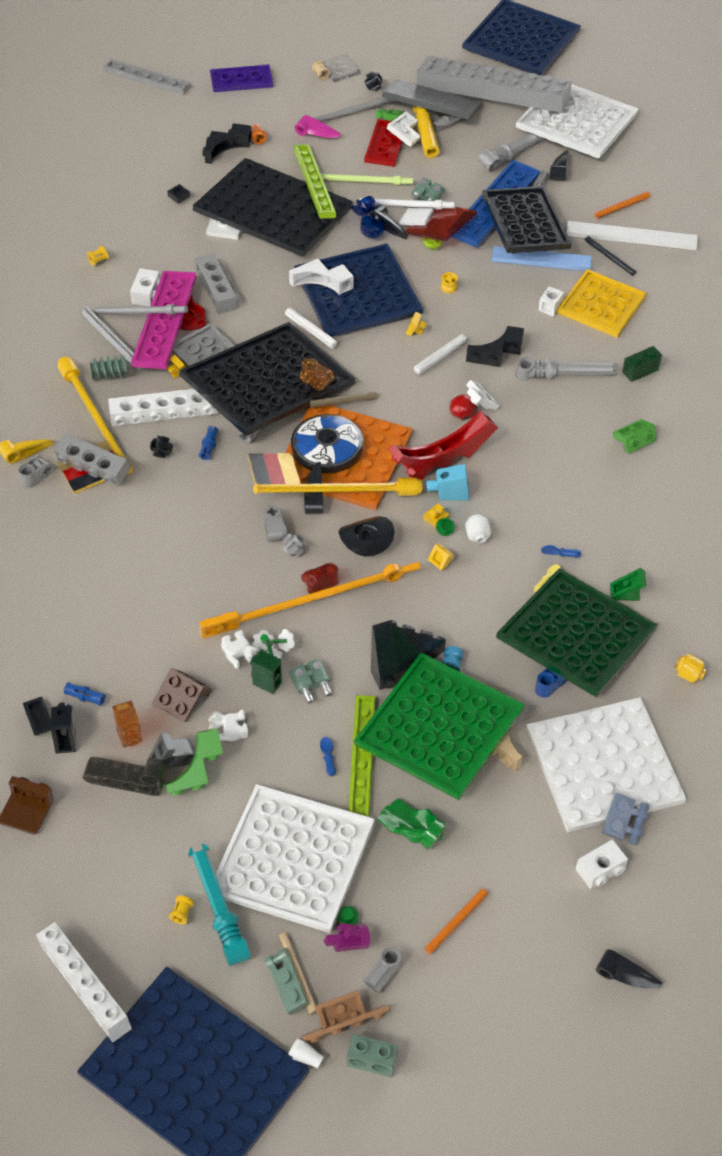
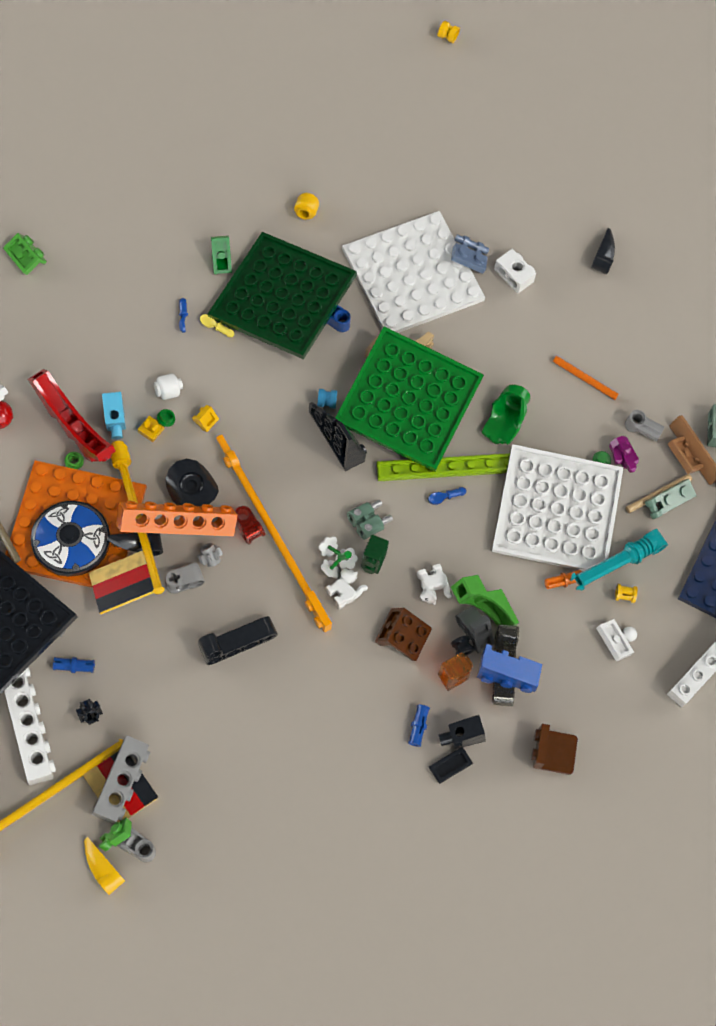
camera: 105 degrees left, 15 degrees up
(46, 454) = (118, 833): none -> bright green plate
(113, 761) = (509, 670): none -> wedge
(130, 889) = (616, 639): none -> white plate
(152, 739) = (463, 645): none -> black wheel
(202, 554) = (236, 641): none -> black beam
(209, 840) = (561, 580): none -> orange axle
(326, 509) = (223, 526): none -> orange brick

